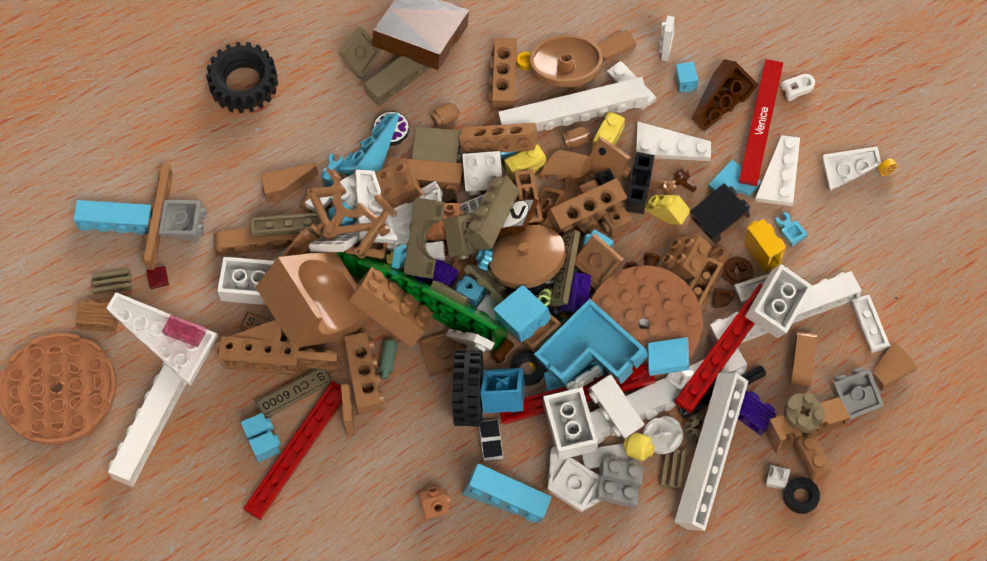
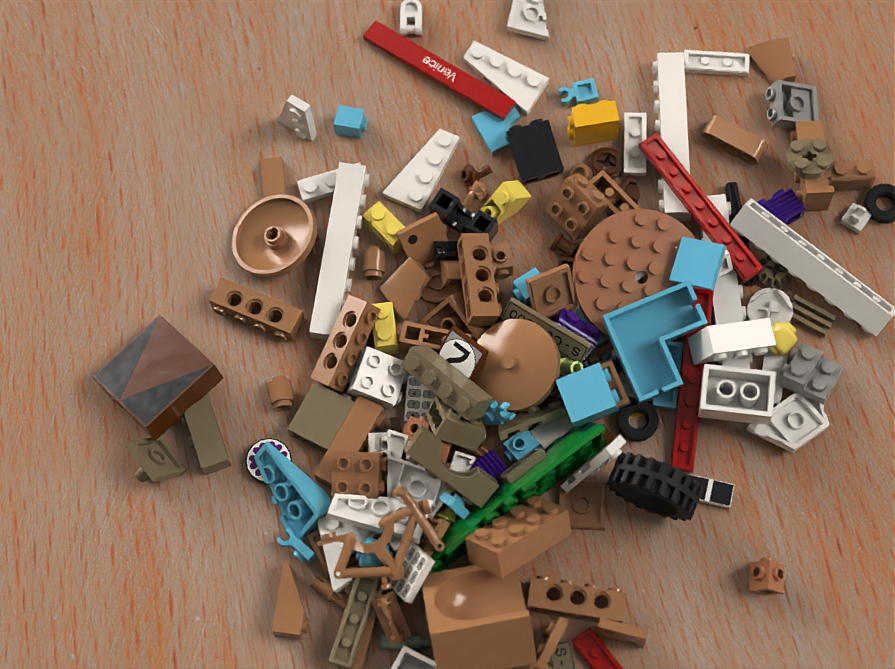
camera: 65 degrees left, 5 degrees up
(237, 58) = (97, 593): black tyre -> none
(387, 358) = (567, 568): sand green cylinder -> none
(503, 390) = (666, 445): dark azure brick -> none
(506, 494) = (783, 497): medium azure wedge -> none
(523, 61) = (247, 280): yellow tile -> none
(585, 378) = (683, 362): white axle -> none
(725, 90) = (381, 85): reddish brown wedge -> none
(779, 301) = (675, 130): white brick -> none

